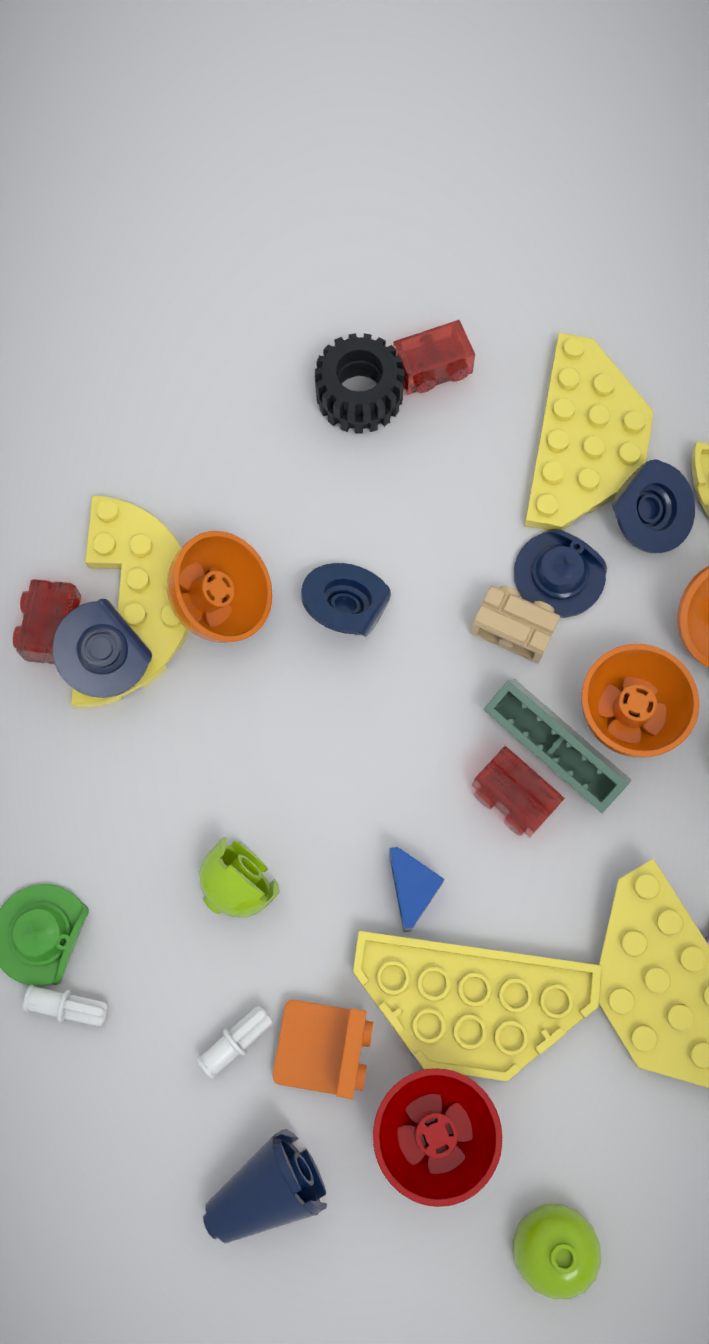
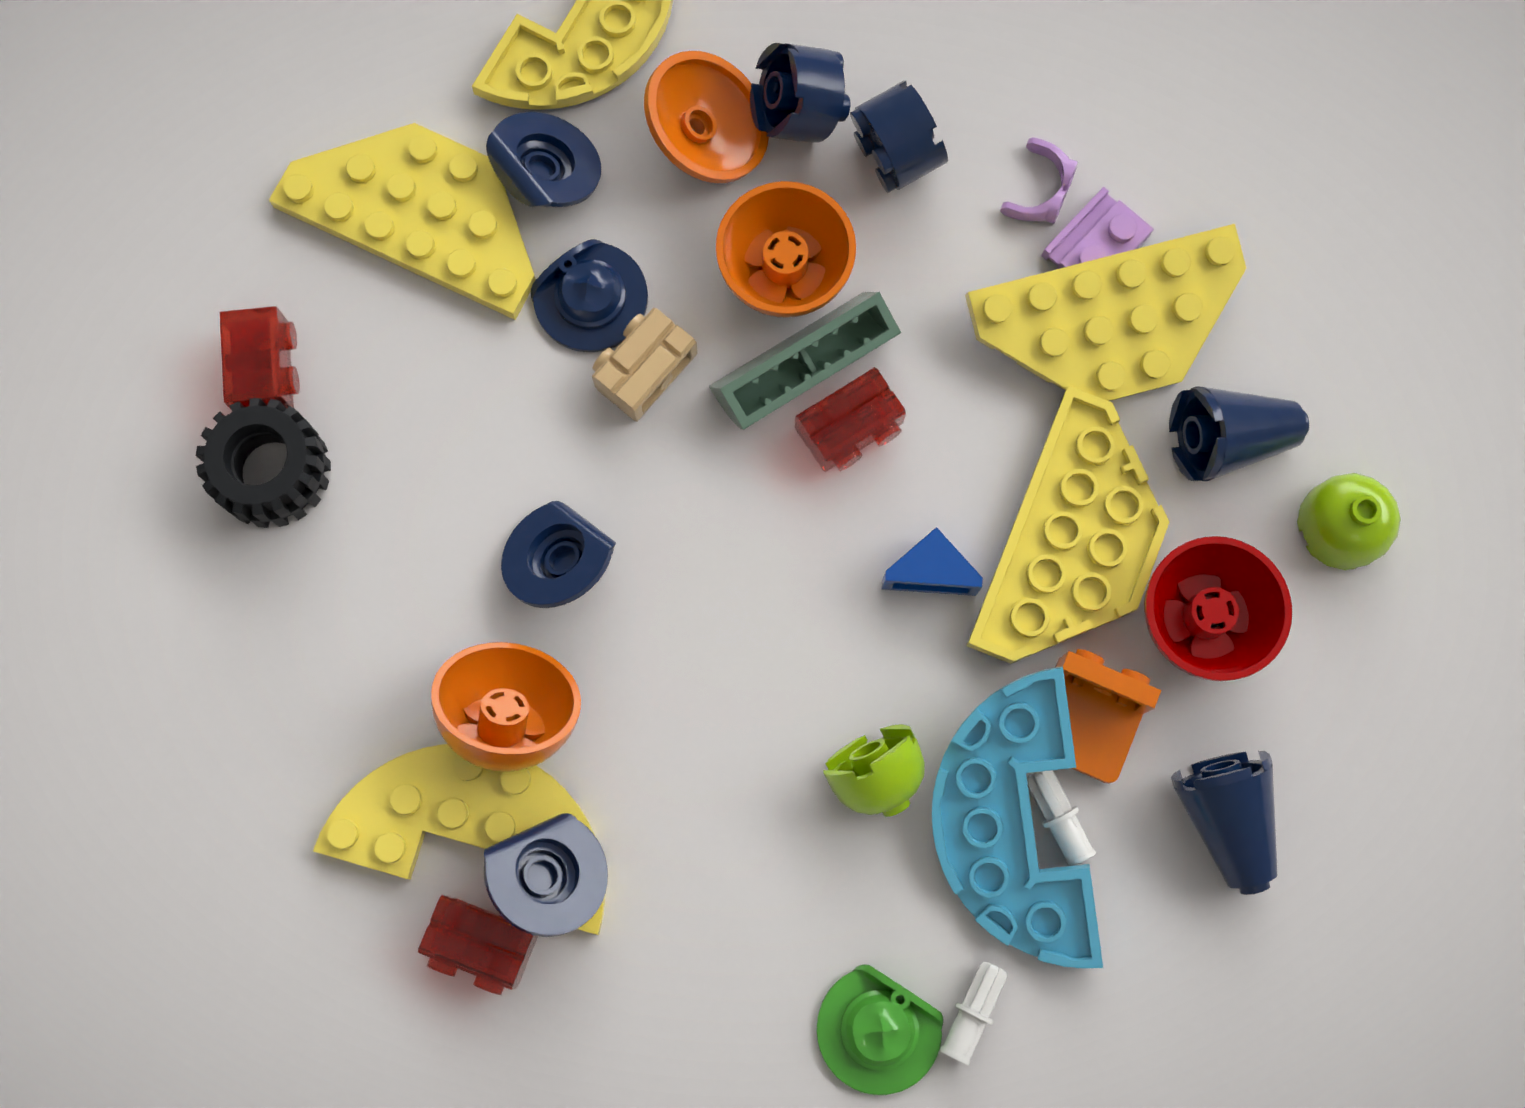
camera: 80 degrees left, 5 degrees up
(209, 982) = (988, 830): none -> medium azure plate
(605, 1123) = (1231, 430): none -> dark blue cone

